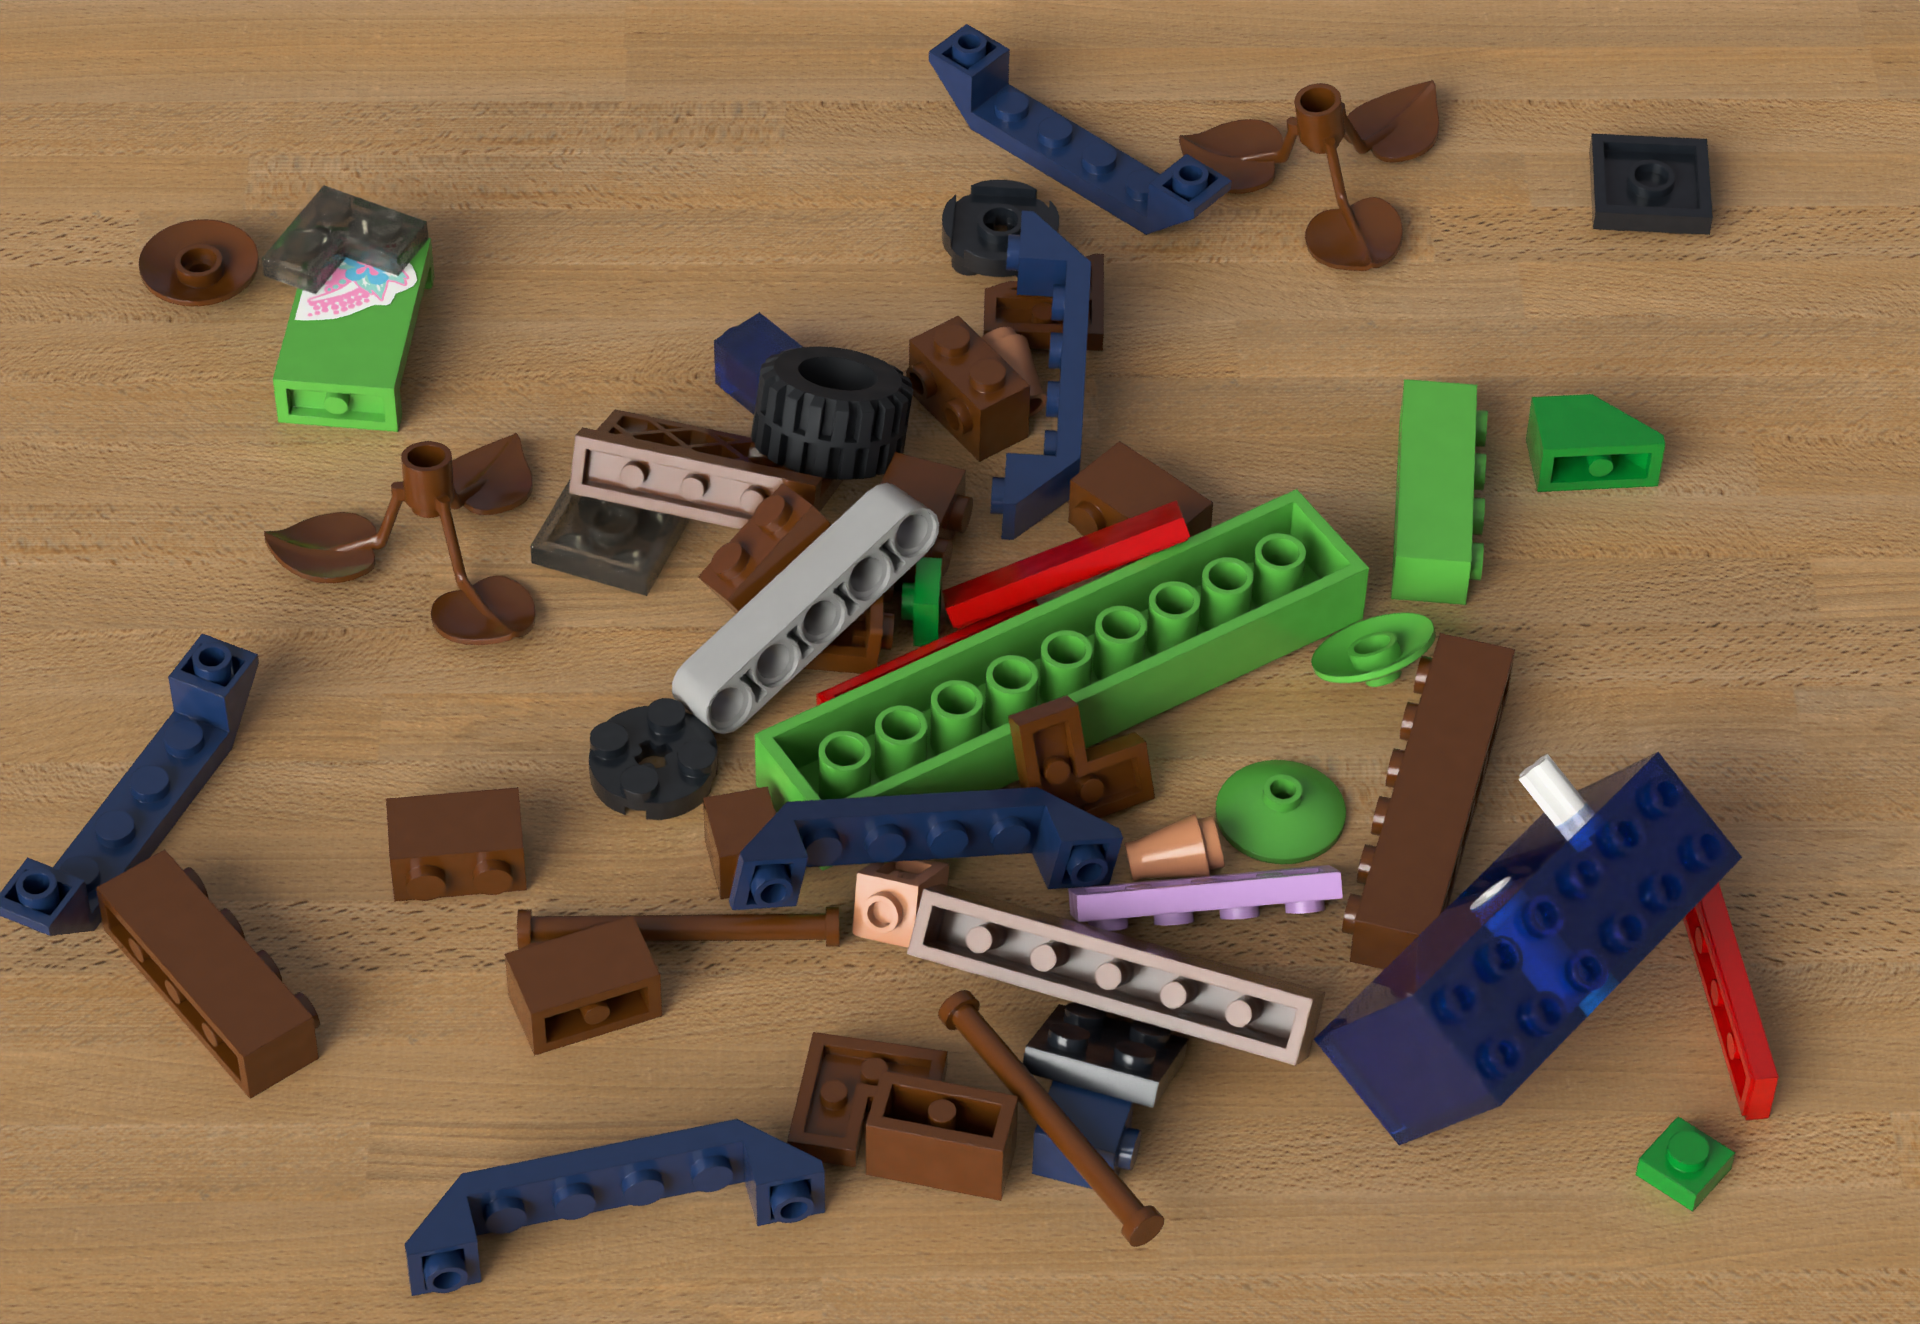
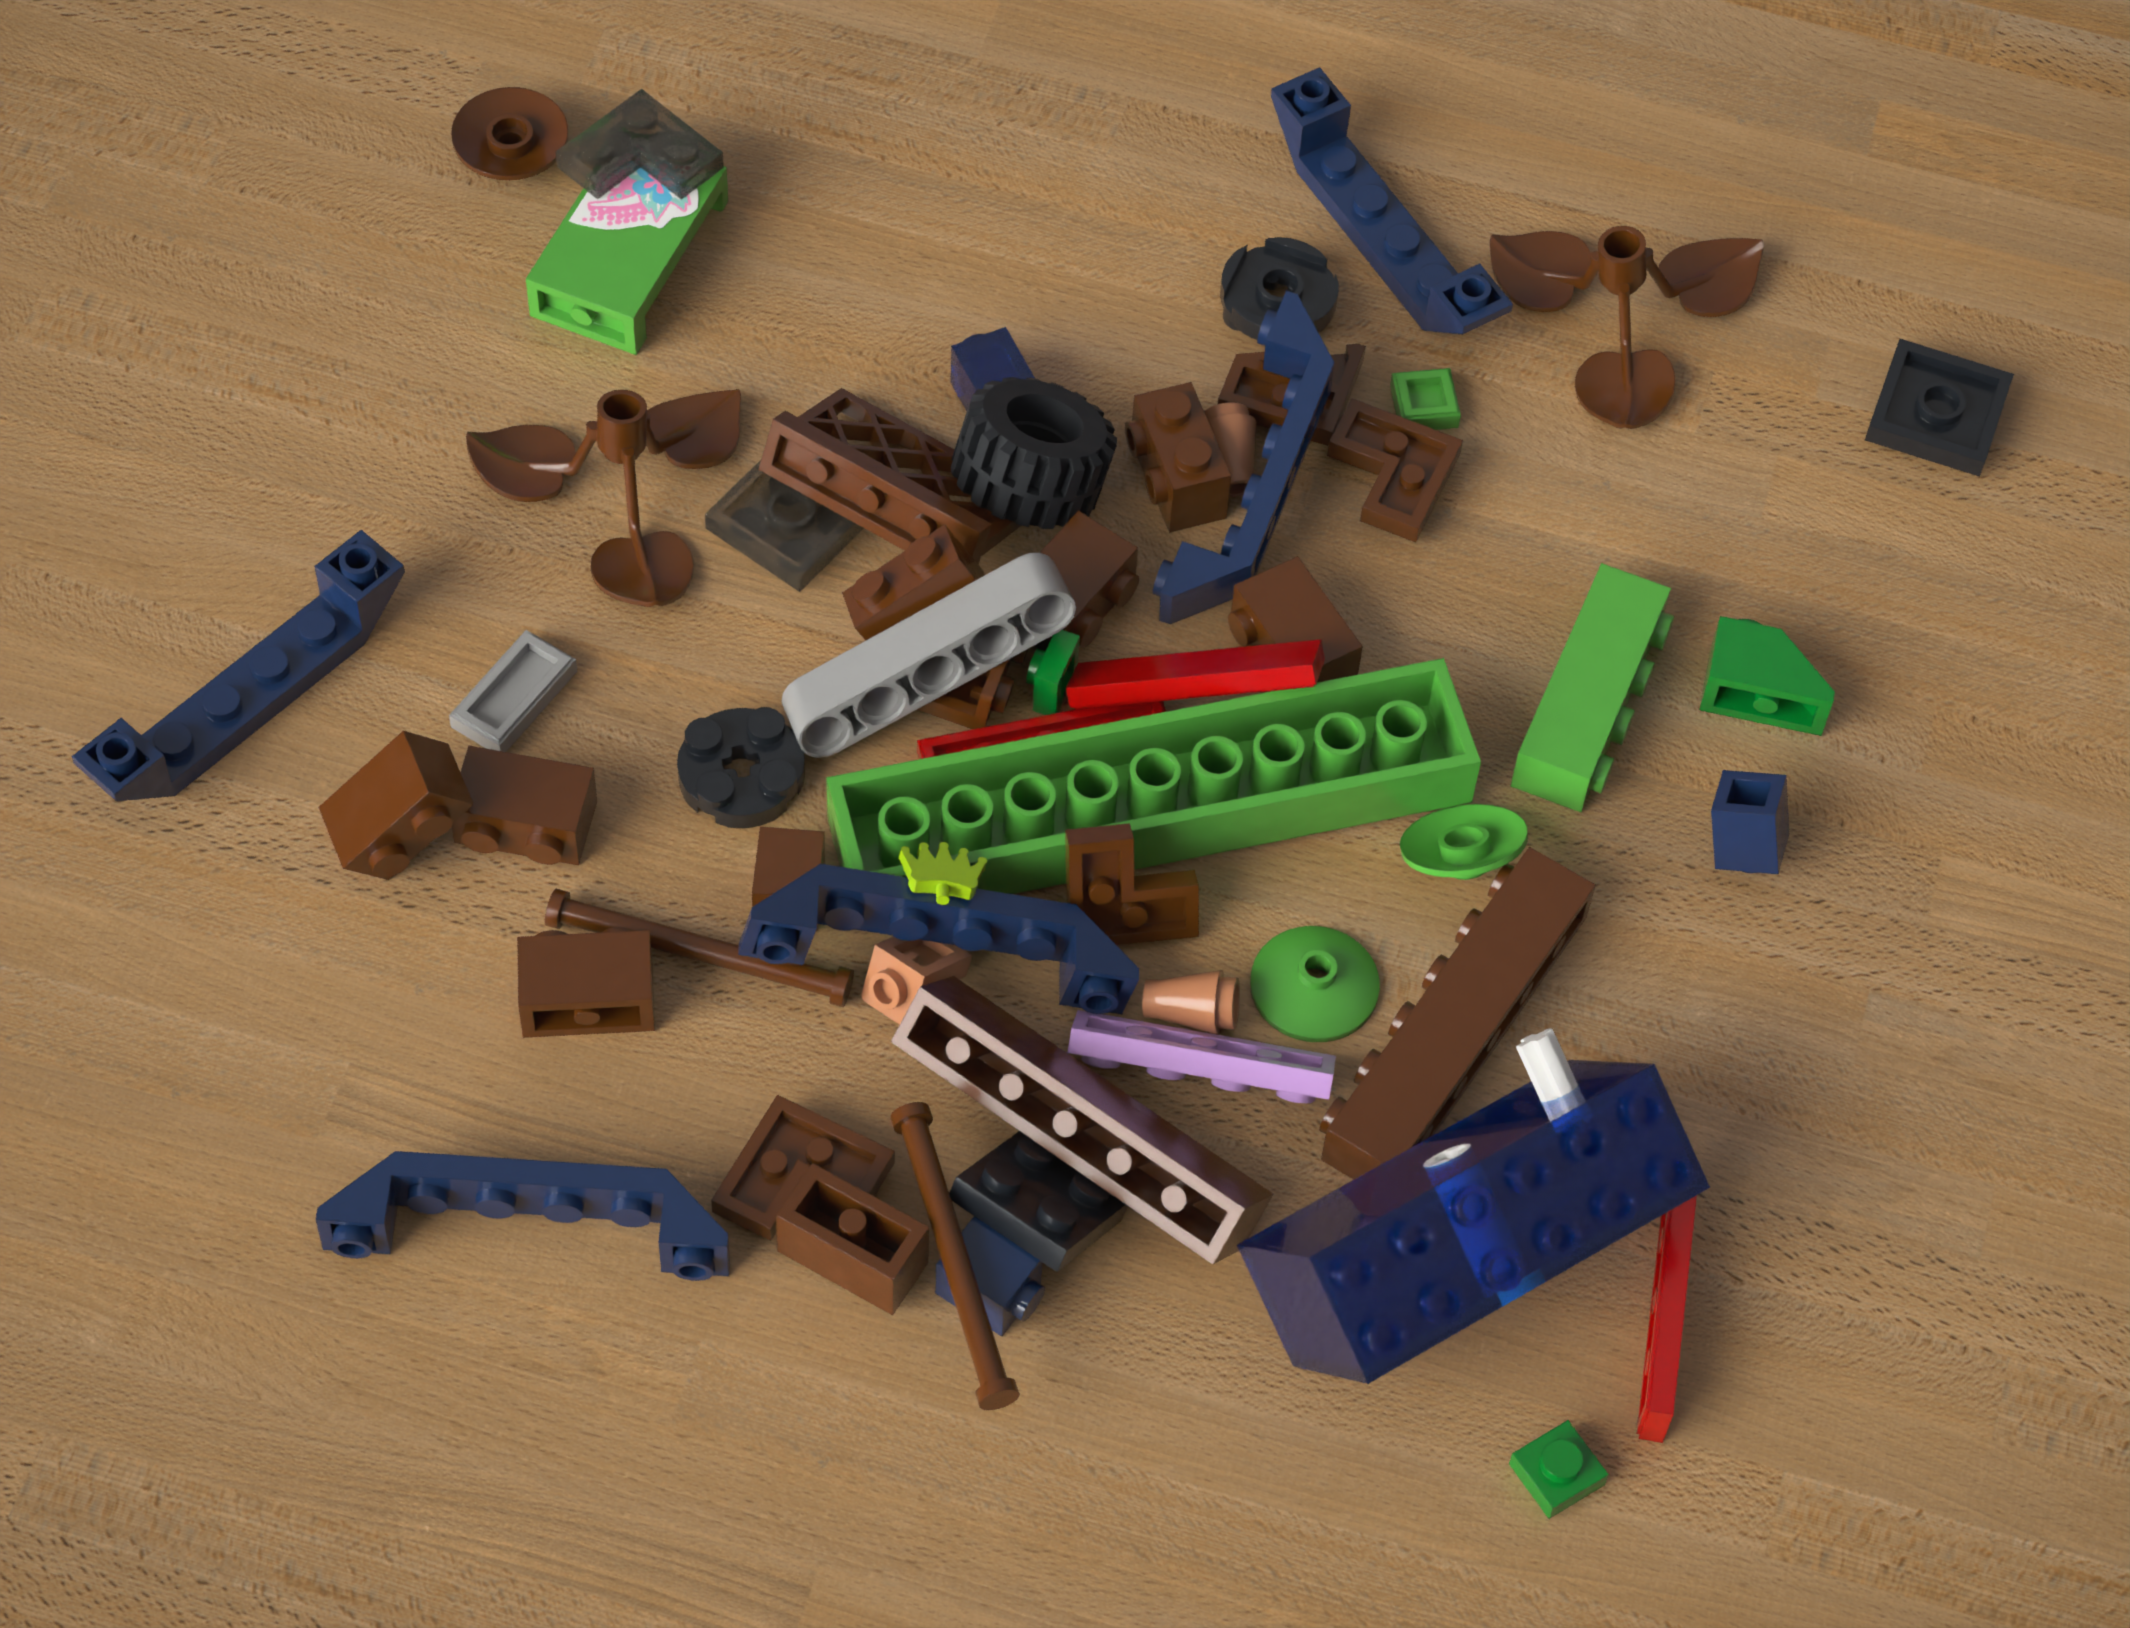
camera: 15 degrees right, 10 degrees up
(209, 972) = (252, 873): reddish brown brick -> none
(336, 869) = (396, 805): none -> reddish brown brick
(400, 750) = (513, 693): none -> light grey tile
(903, 785) = (942, 874): none -> lime piece
(1174, 291) = (1426, 398): none -> bright green tile
(1181, 340) = (1407, 458): none -> reddish brown plate
(1632, 564) = (1750, 822): none -> dark blue brick

